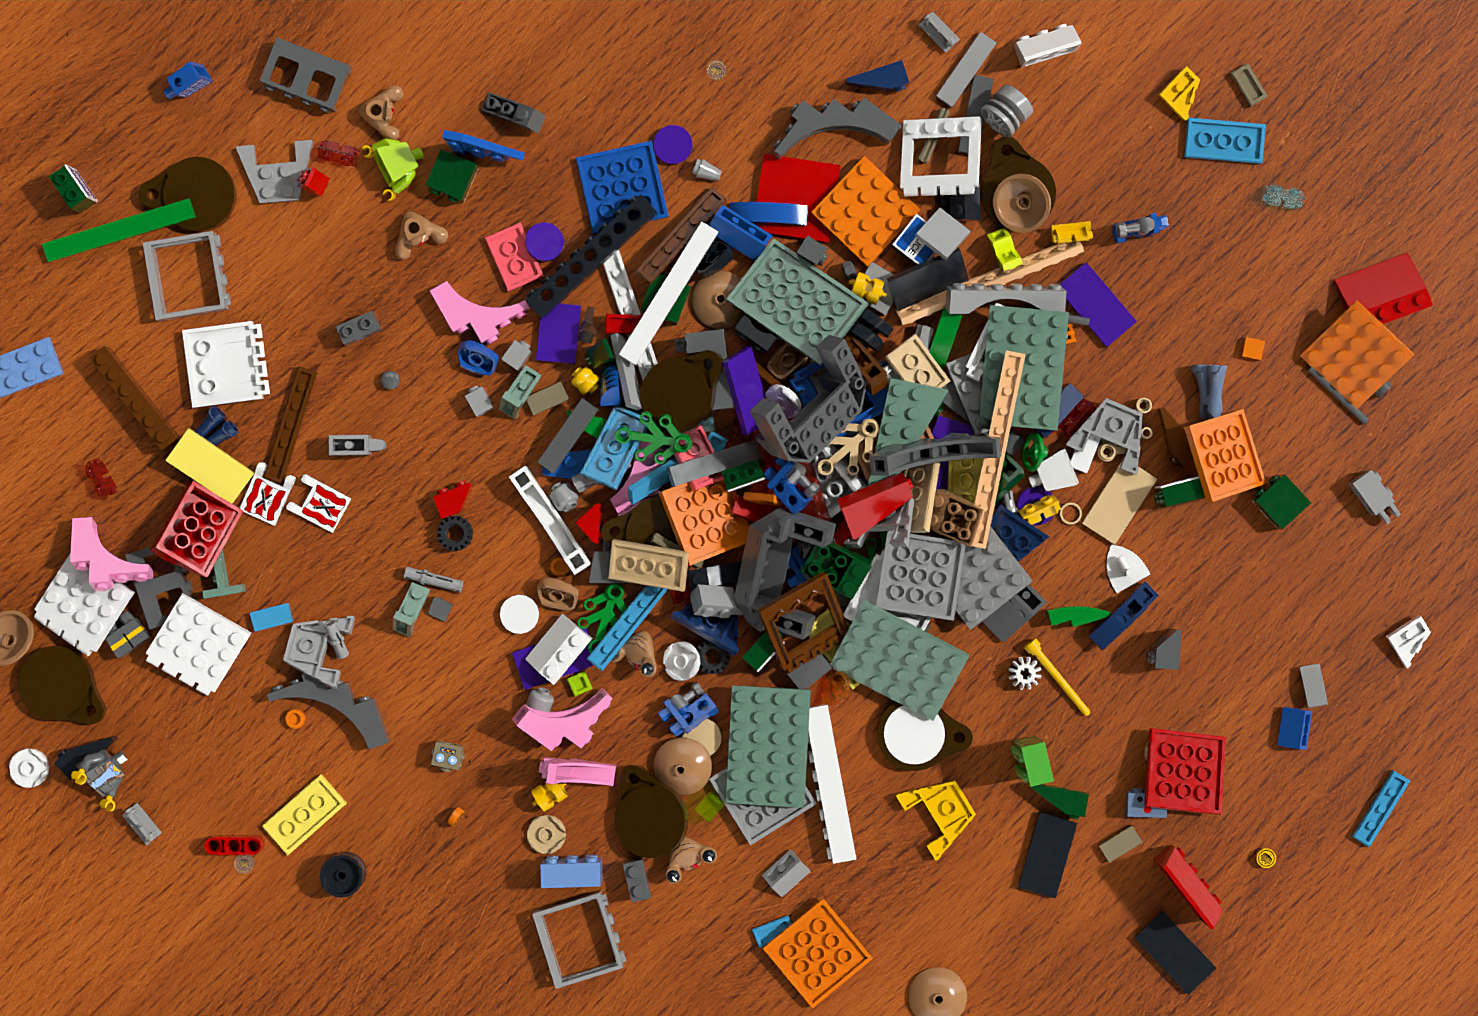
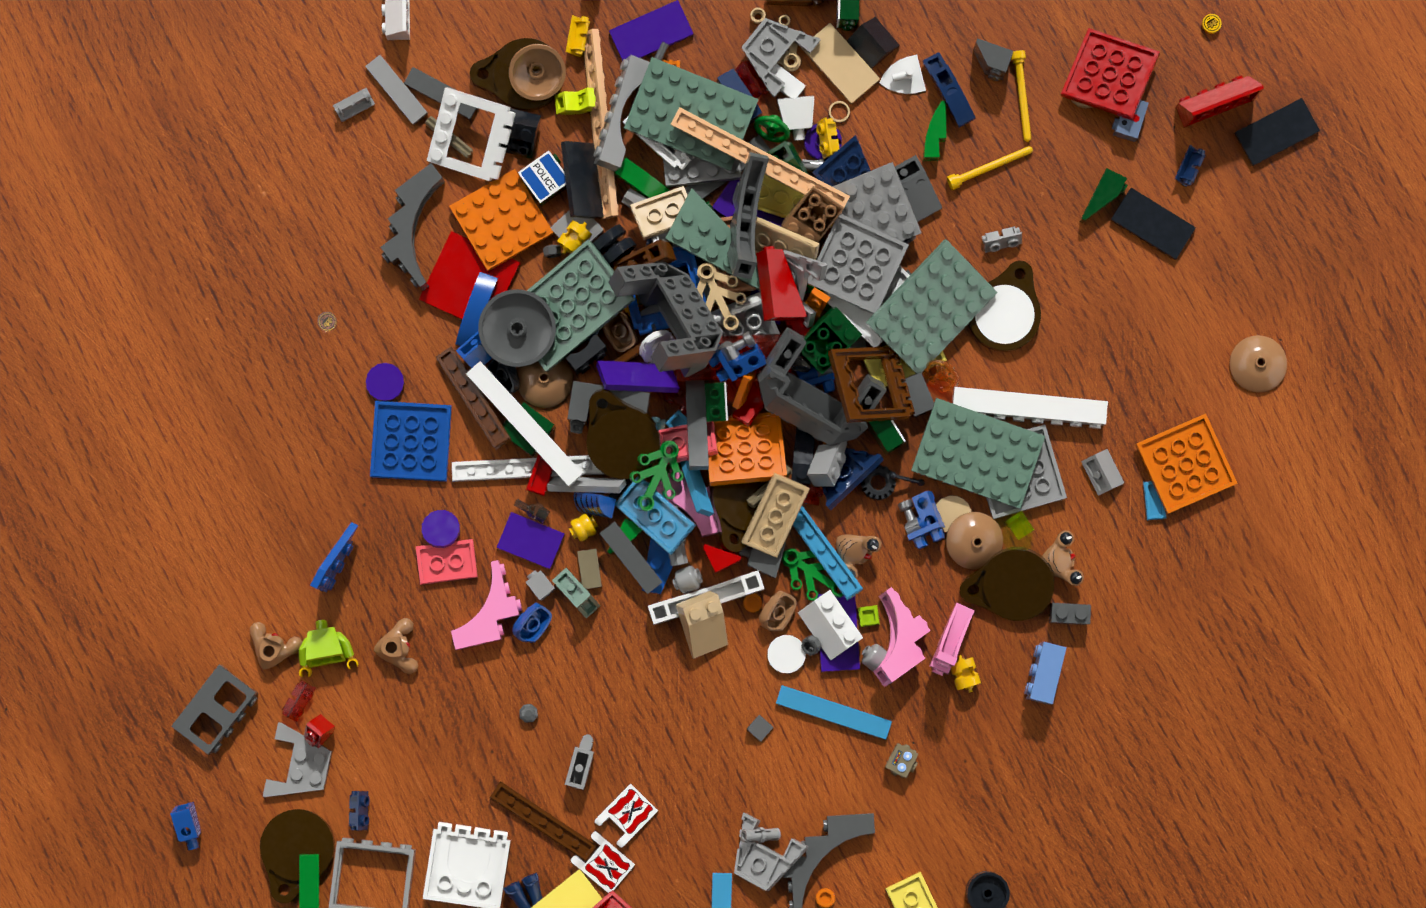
camera: 75 degrees left, 5 degrees down
(258, 242) = (360, 801): none -> dark blue hinge
(359, 328) = (471, 727): dark grey brick -> none
(410, 609) = (752, 756): sand green bracket -> none
(433, 579) = (730, 725): light grey pin -> none
(451, 176) = (353, 598): dark green piece -> none
(452, 501) = (661, 686): red slope -> none
(456, 816) = (960, 767): orange tile -> none
(466, 537) = (680, 693): black tyre -> none
(476, 676) = (833, 712): none -> dark azure tile
(479, 401) = (573, 633): light grey brick -> none
(514, 112) = (310, 522): dark grey slope -> none
(524, 524) = (703, 623): none -> tan slope
(533, 636) = (811, 645): none -> dark grey tile
(546, 834) = (1003, 688): tan tile -> none
(558, 979) = (1118, 652): light grey window -> none
(559, 294) = (442, 424): black brick -> none
(600, 354) = (563, 505): dark green slope -> none
(681, 661) = (874, 512): white tile -> none
(705, 170) = (418, 358): light grey cone -> none
(722, 669) = (920, 482): none -> black hinge
(760, 258) = (517, 327): none -> dark grey dish
(813, 252) = (525, 277): dark grey brick -> none
(872, 546) = (817, 301): none -> orange slope
(884, 78) = (382, 167): dark blue slope -> none
(942, 233) = (544, 153): light grey tile -> none
(946, 806) = (1083, 303): yellow wing -> none
(992, 718) = (1010, 238): none -> light grey hinge
(1007, 110) = (446, 62): light grey wheel -> none
(1030, 668) = (973, 189): white gear -> none
(1032, 761) = (1060, 209): bright green brick -> none
(1108, 874) = (1187, 171): none -> dark blue hinge
(1120, 843) = (1161, 153): dark tan tile -> none
(1149, 527) = (872, 42): none -> black slope
(1173, 676) = (1018, 59): none -> yellow piece

